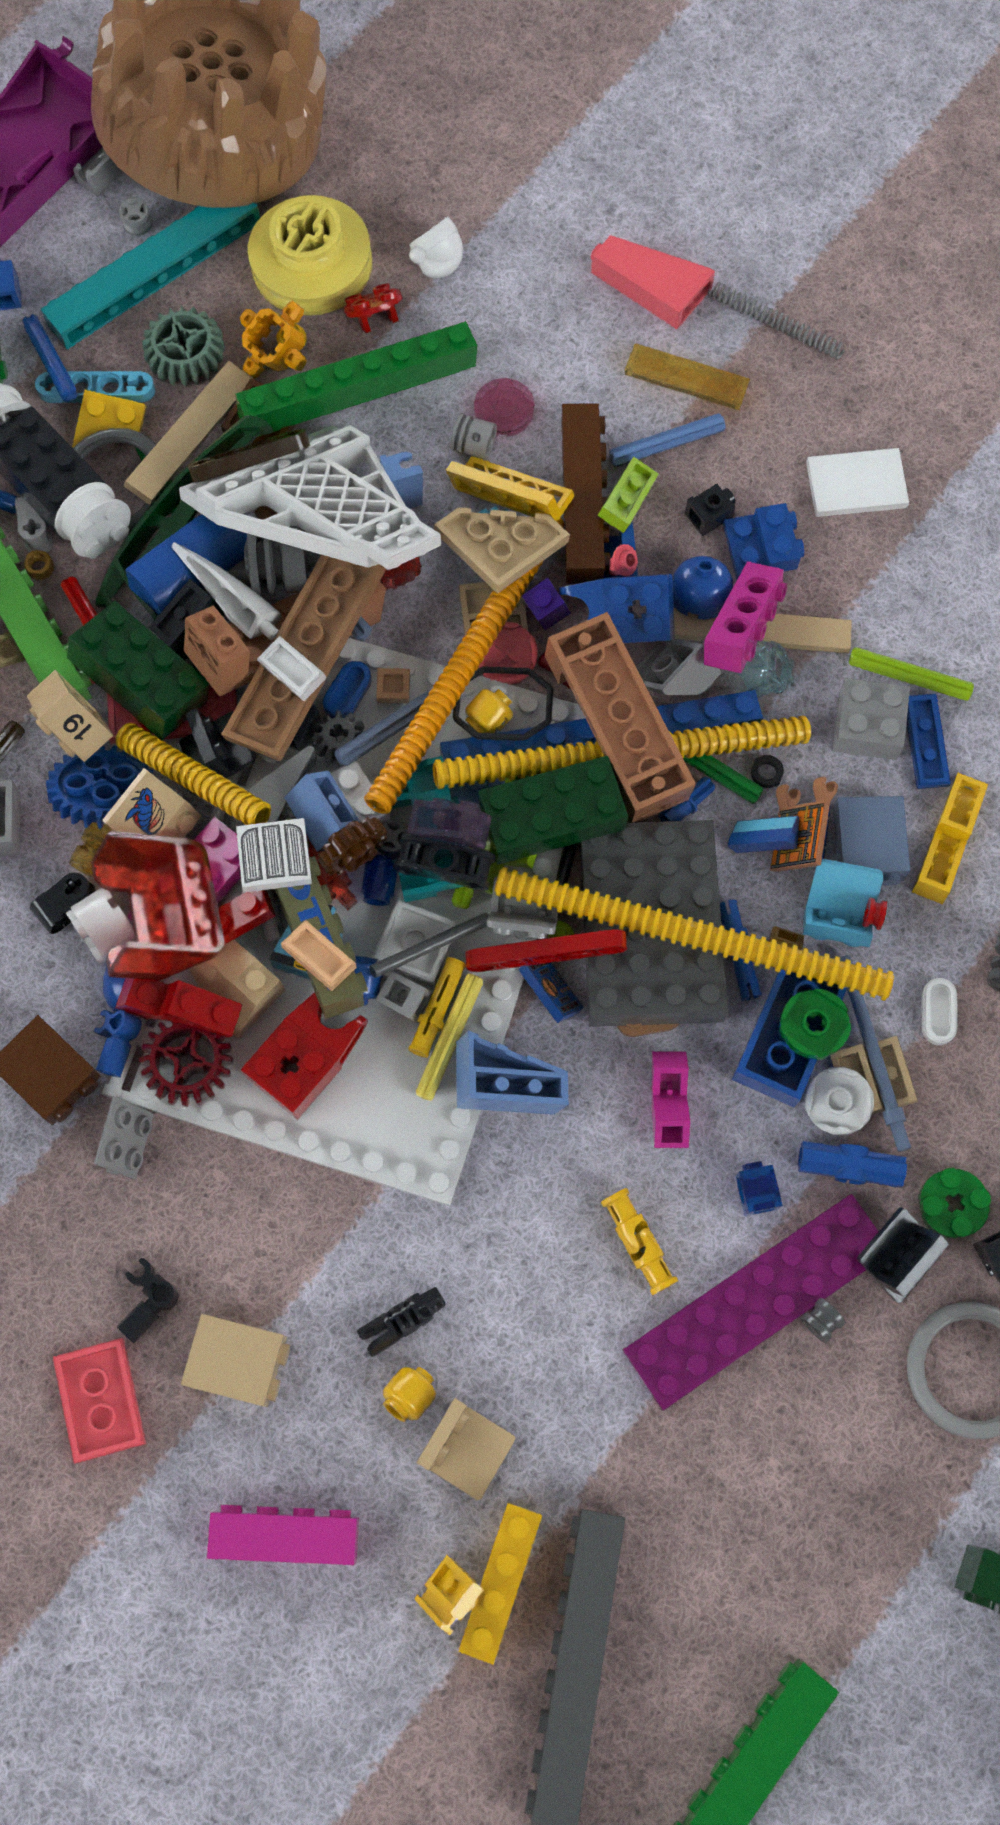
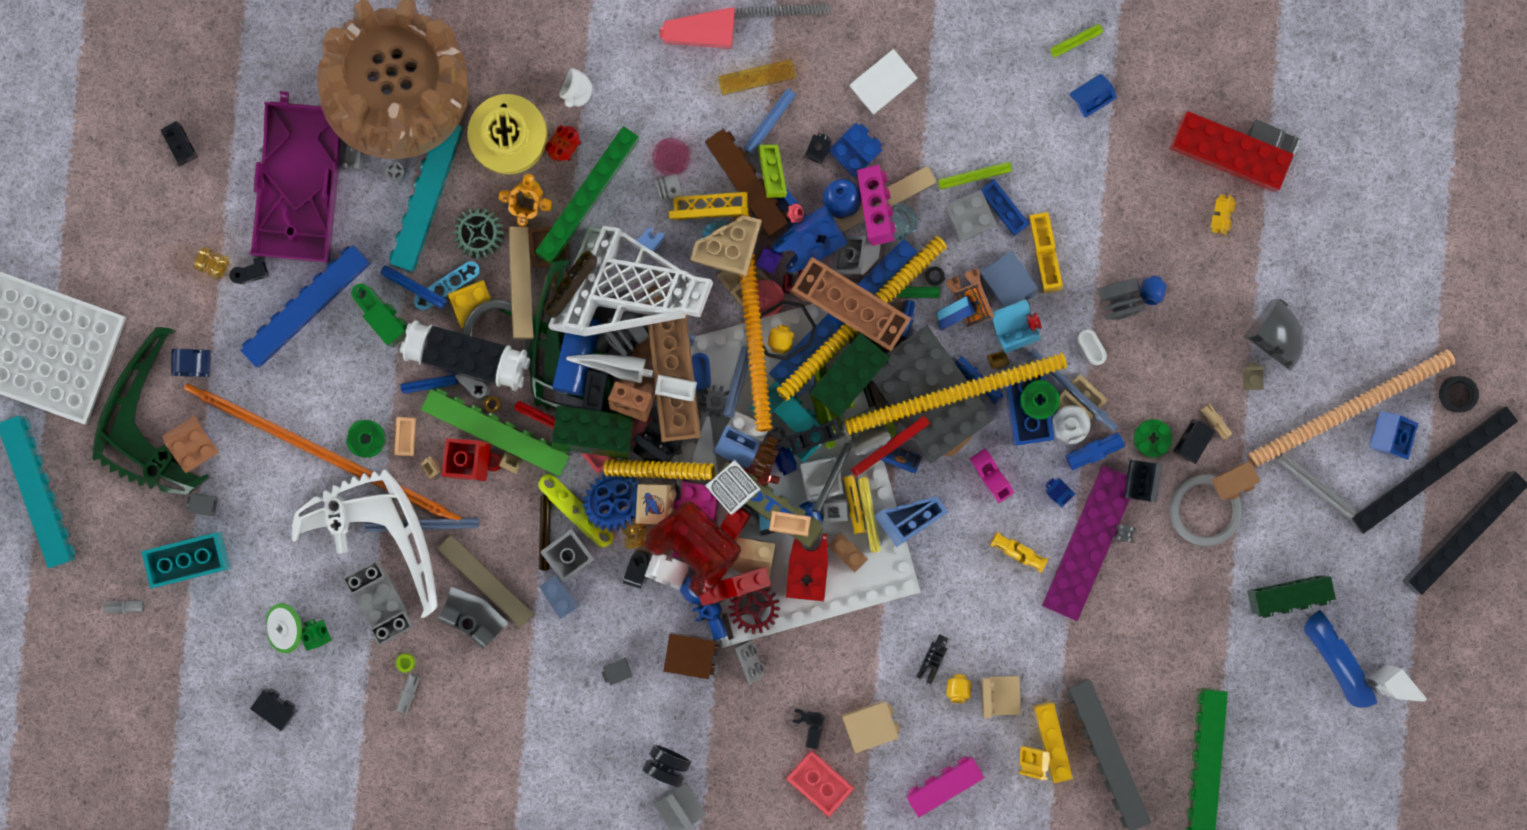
camera: 35 degrees left, 15 degrees up
(38, 749) = (567, 502): none -> neon yellow piece
(68, 716) = (576, 479): tan brick -> none
(380, 1071) = (847, 552): none -> medium nougat plate
(393, 685) = (723, 355): medium nougat plate -> none
(450, 822) = (808, 418): clear purple brick -> none

